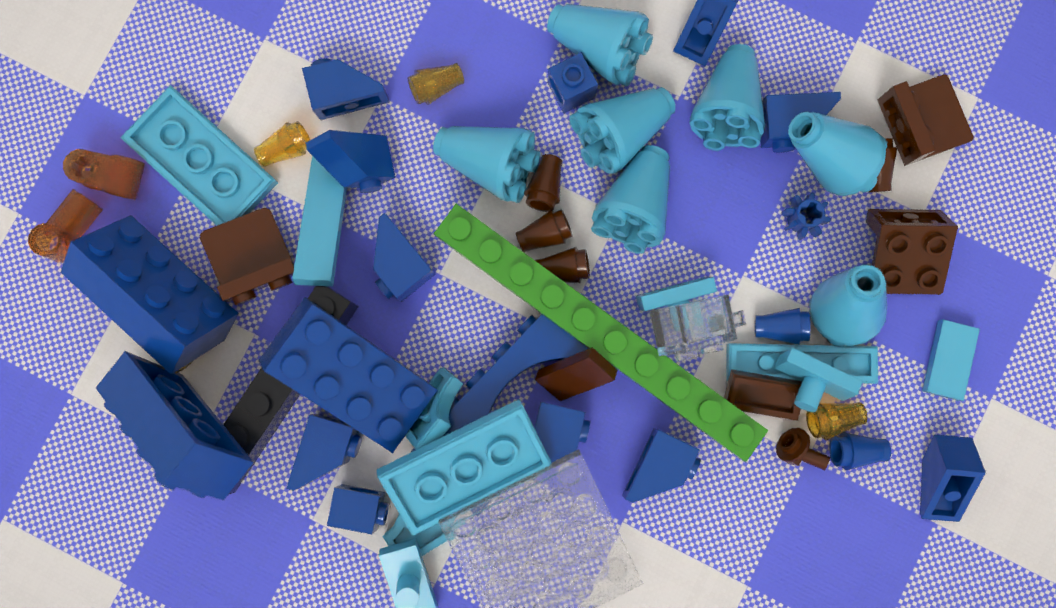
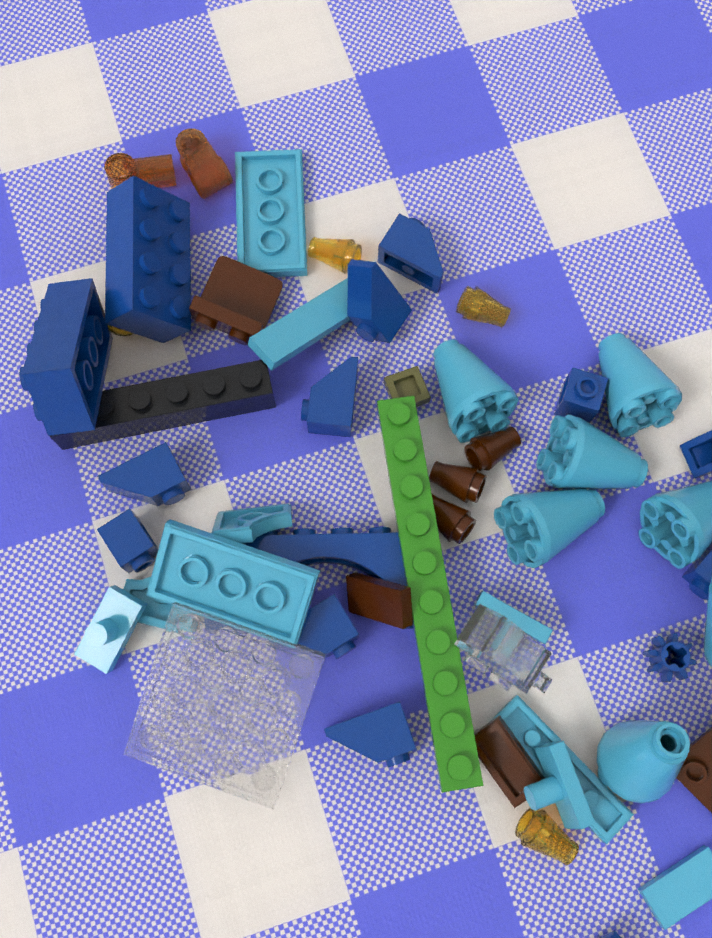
camera: 40 degrees right, 10 degrees down
(347, 375) = (218, 440): blue brick -> none
(440, 198) = (407, 384): none -> olive plate
(784, 326) = (574, 725): blue cone -> none
(798, 449) = (490, 827): reddish brown plate -> none
(857, 451) = (539, 880): blue cone -> none

